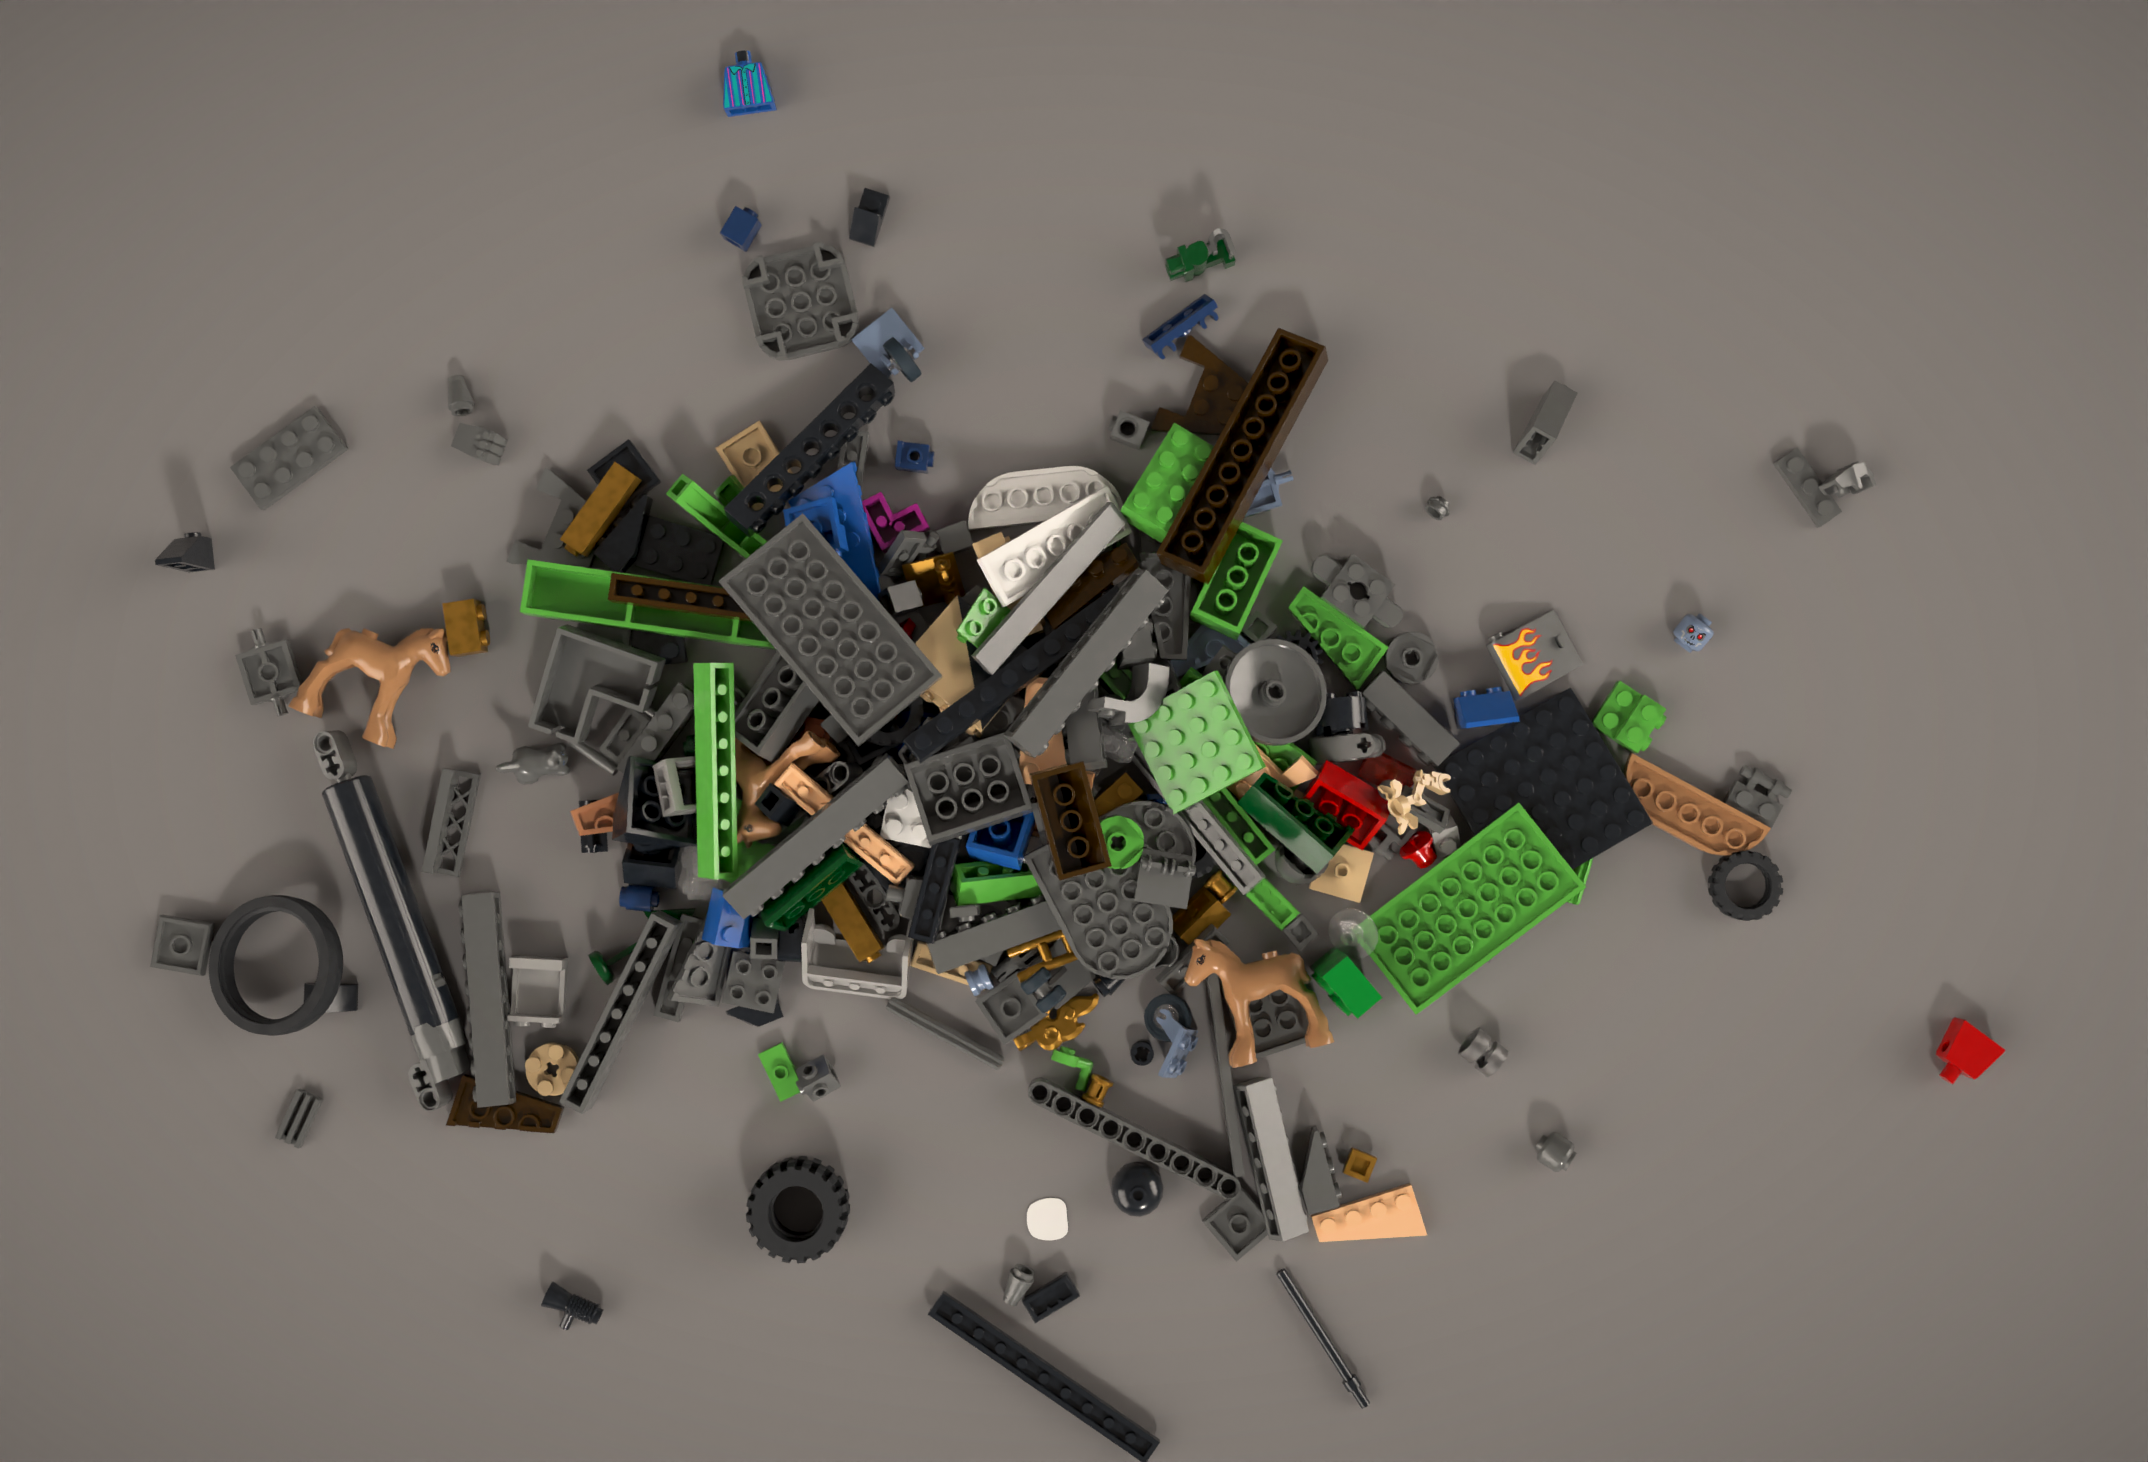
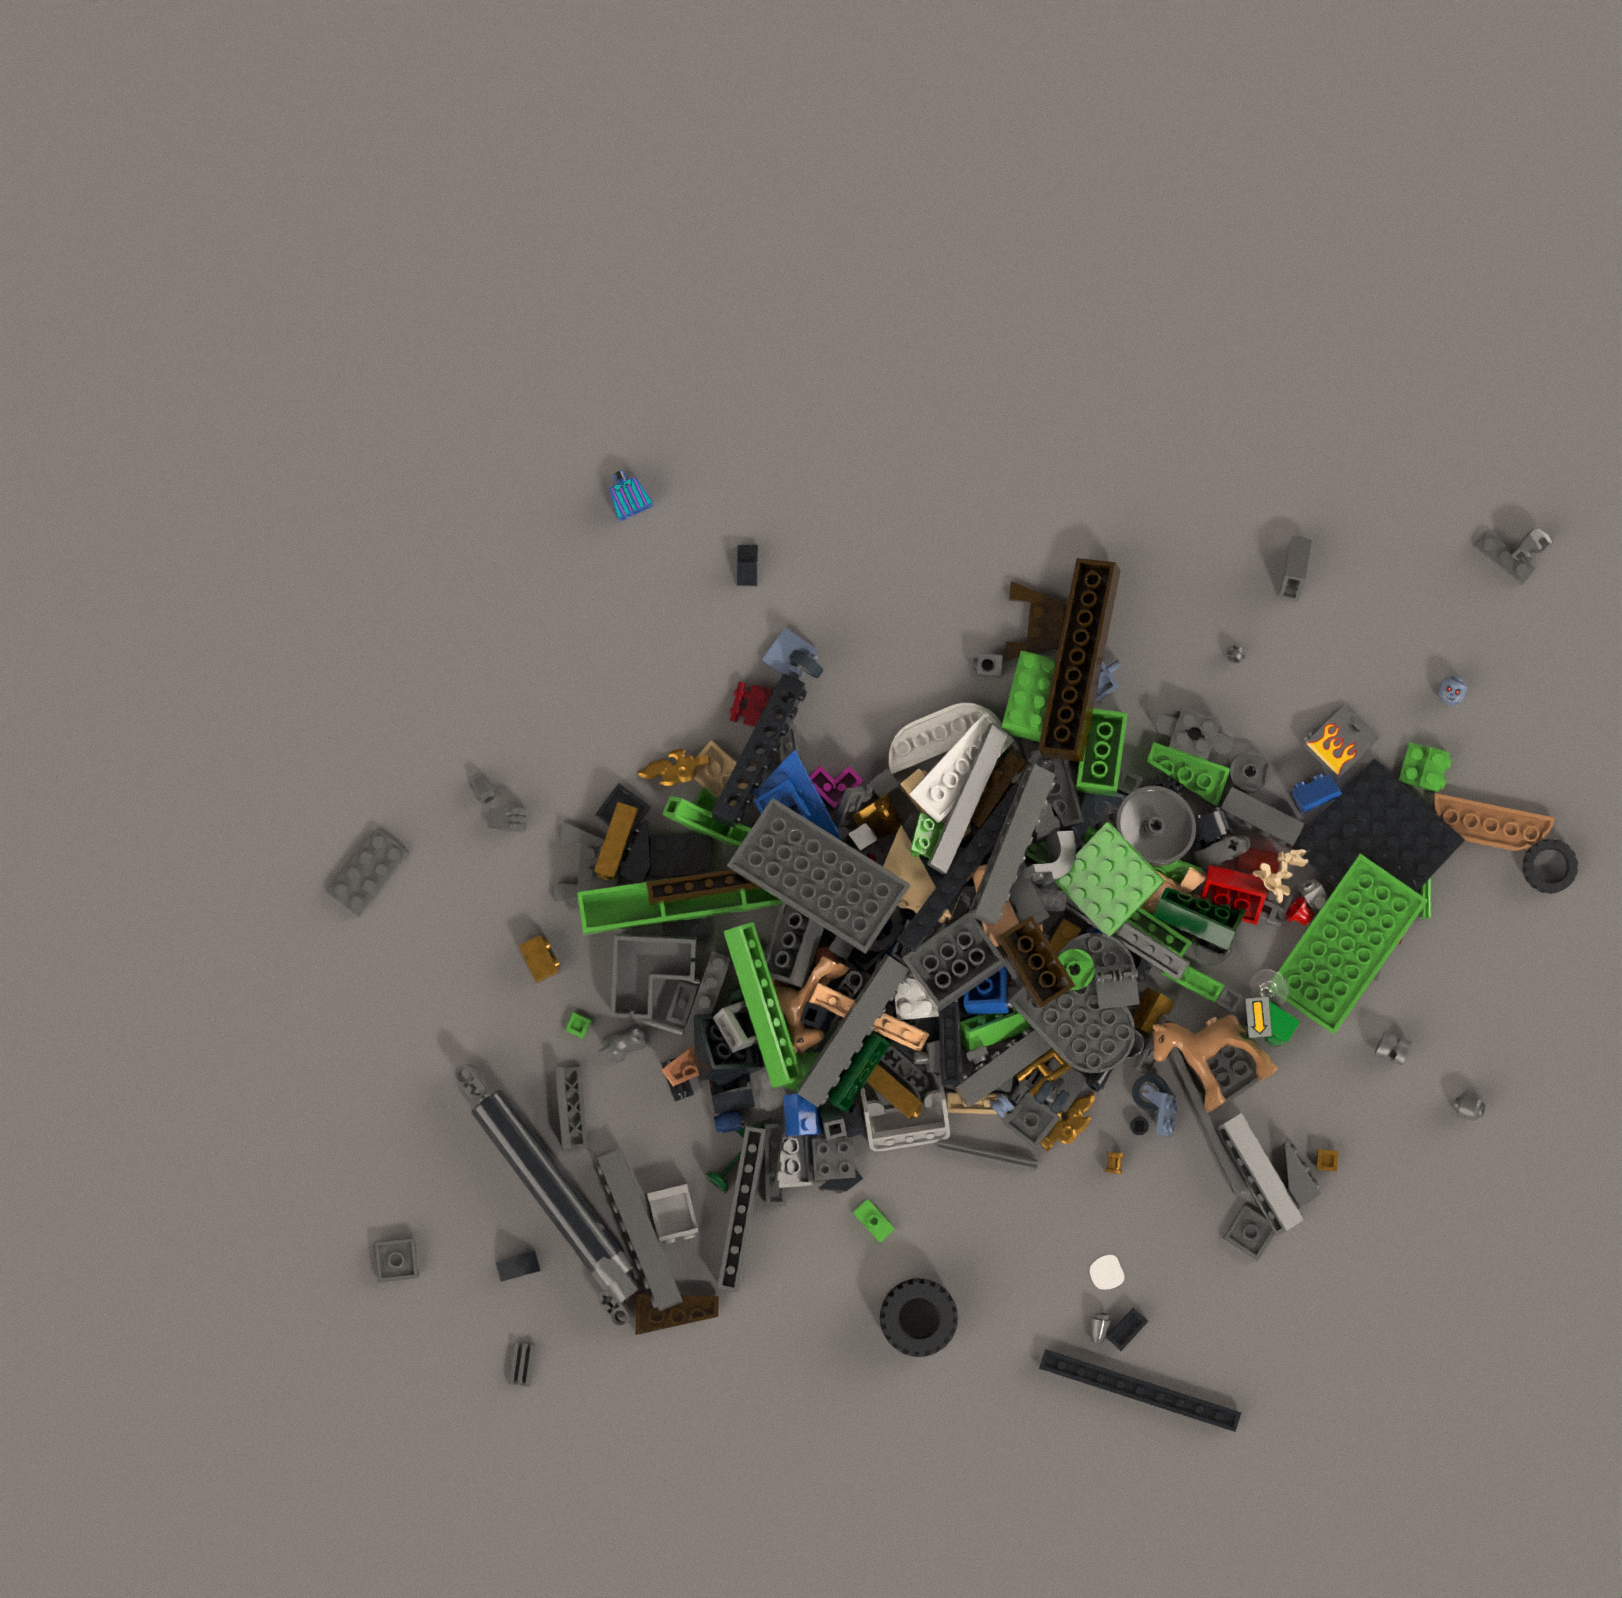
camera: 10 degrees left, 5 degrees down
(188, 554) = (319, 964): black slope -> none
(222, 965) = (430, 1251): black tyre -> none
(269, 672) = (401, 1036): dark grey plate -> none
(379, 661) = (485, 1003): medium nougat animal -> none
(491, 723) = (578, 1025): none -> bright green tile
(537, 1063) = (701, 1258): tan plate -> none
(572, 1305) = (770, 1443): black piece -> none
(710, 448) = (682, 771): none -> pearl gold piece
(741, 228) = (655, 601): dark blue brick -> none
(801, 302) = (715, 643): dark grey tile -> none
(817, 1078) = (902, 1216): dark grey brick -> none
(830, 387) = (757, 702): none -> dark red plate
(903, 459) = (829, 738): dark blue brick -> none
(1067, 1057) = (1083, 1144): bright green plate -> none
(1137, 1189) = (1166, 1229): black cylinder -> none
(1142, 1148) = (1163, 1188): dark grey beam -> none
(1181, 325) = (1003, 576): dark blue plate -> none
(1201, 256) = (1003, 521): dark green hips -> none
(1220, 886) = (1160, 983): pearl gold bush -> none
(1330, 976) = (1258, 1017): none -> light grey sticker
(1345, 874) = (1249, 946): tan plate -> none
(1350, 1380) = (1371, 1325): black bar -> none
(1372, 1217) = (1352, 1195): light nougat wing -> none
(1430, 815) = (1297, 882): dark grey plate -> none
(1753, 803) = (1538, 803): dark grey plate -> none

